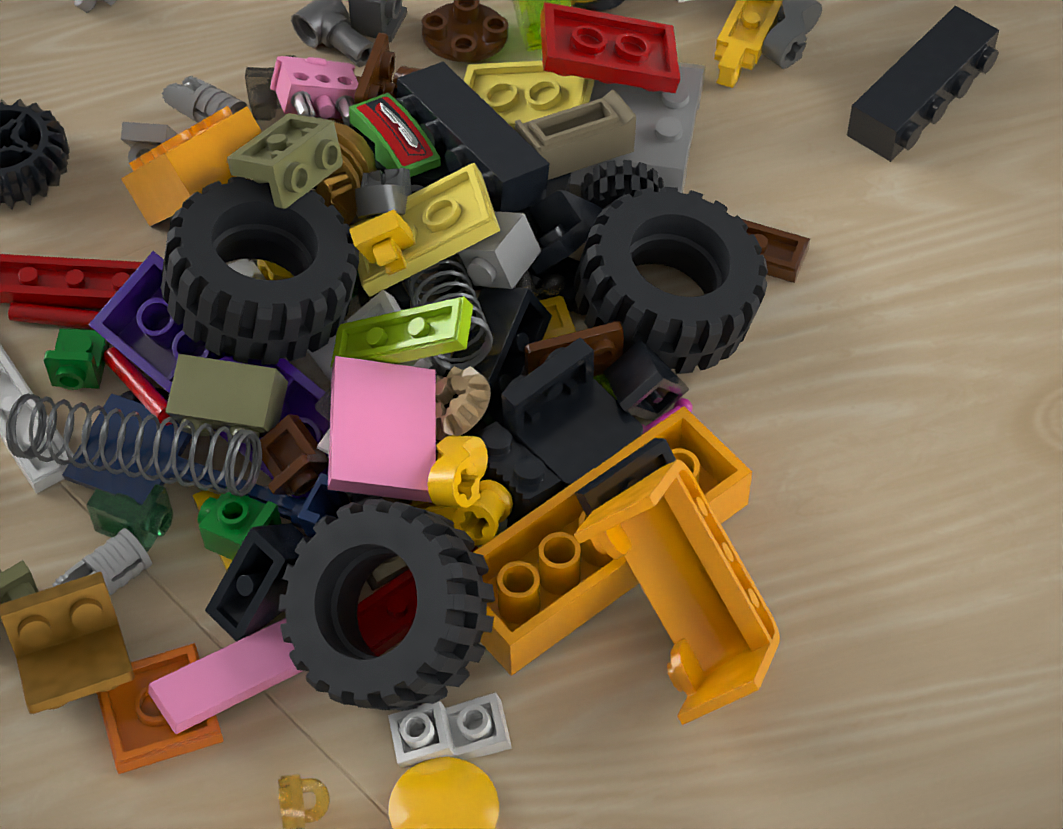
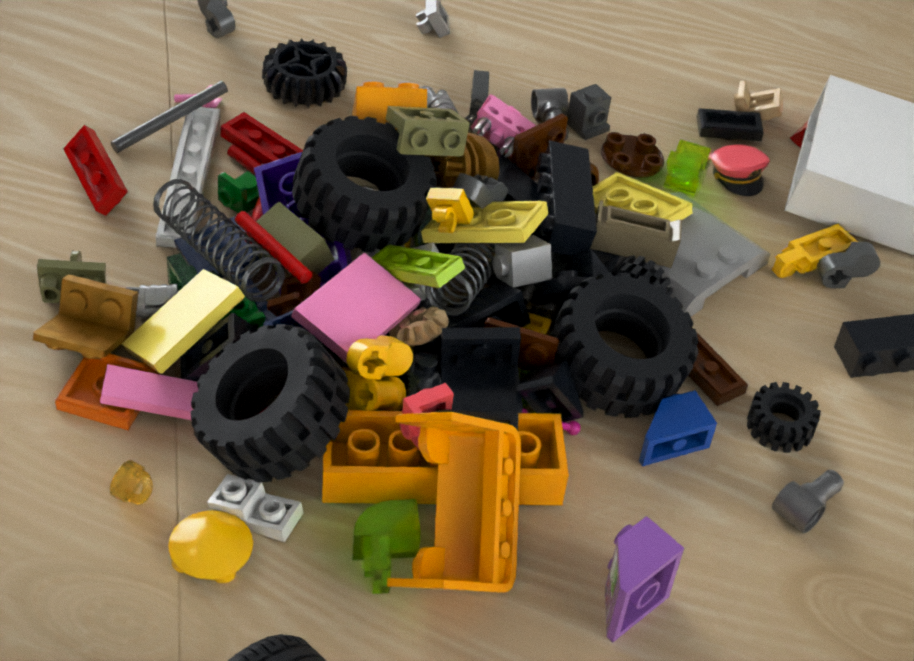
camera: 30 degrees right, 10 degrees down
(182, 571) = (183, 321): none -> light yellow tile
(223, 415) = (274, 248): none -> red bar
(230, 52) = (480, 85): none -> dark grey beam
(395, 133) = (522, 171): slope -> none
(557, 502) = (425, 402): none -> coral bracket
(609, 48) = (703, 200): red plate -> none
(612, 668) = (384, 533): none -> clear neon green brick
(787, 337) = (678, 428): none -> blue slope
(876, 233) = (781, 432): none -> black tyre
(898, 534) = (639, 575): none -> medium lavender slope
(970, 338) = (807, 503): none -> flat silver pin

